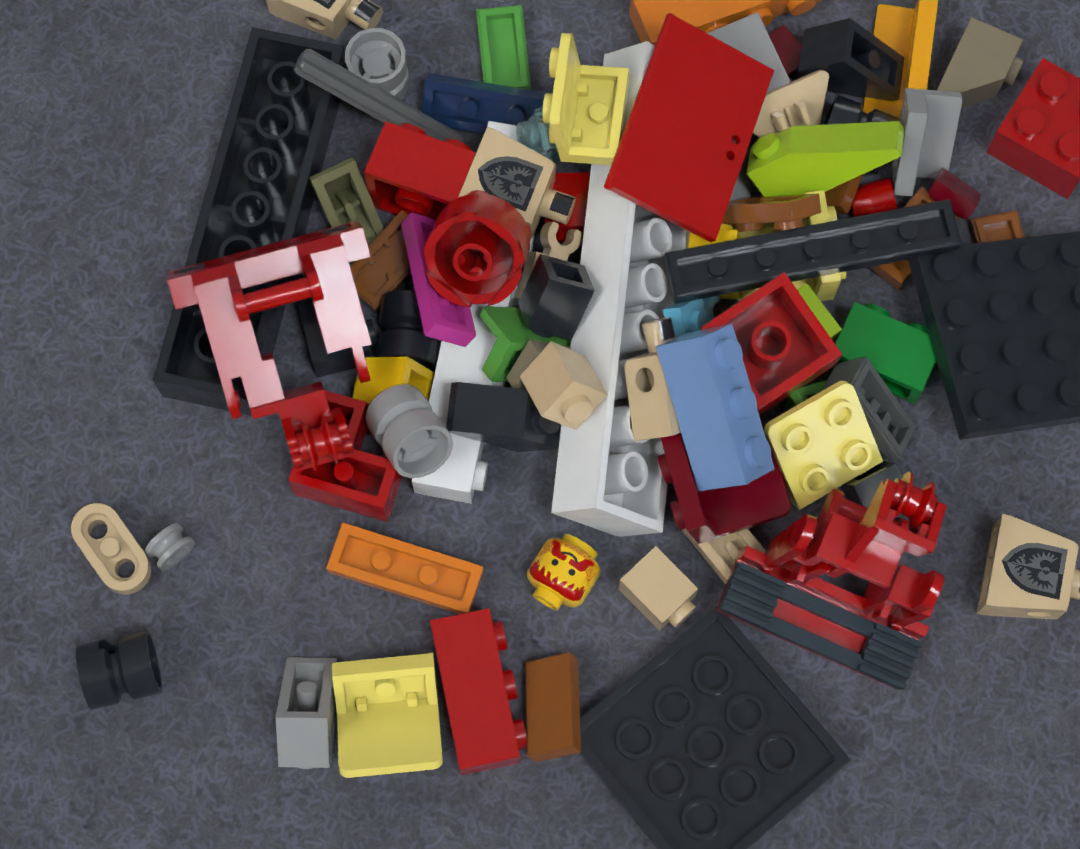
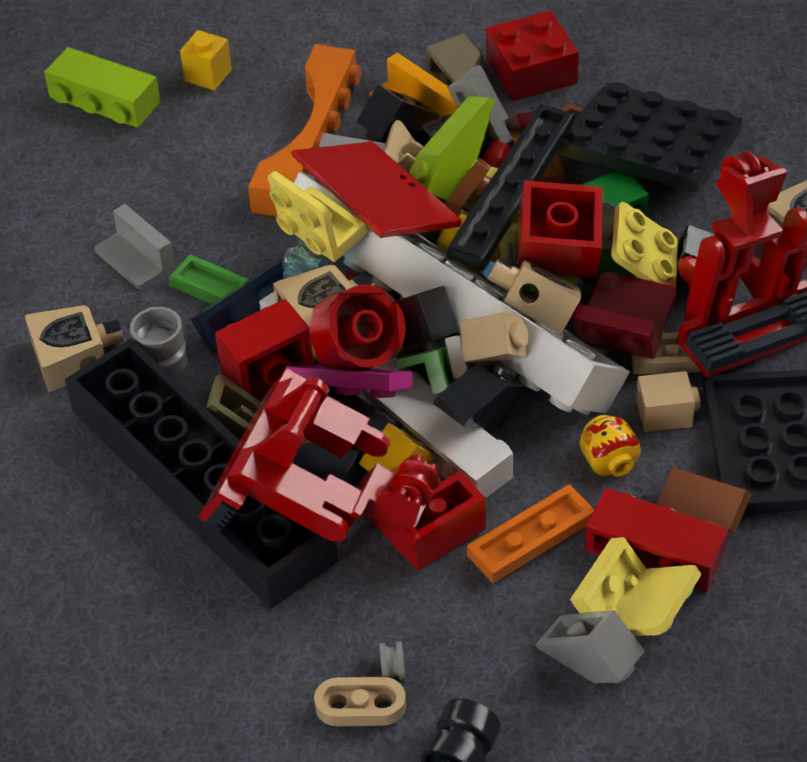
camera: 50 degrees left, 25 degrees down
(367, 96) = (168, 348): dark grey axle -> none
(409, 431) = (450, 443): light grey wheel -> none
(715, 408) = (582, 264): medium blue brick -> none

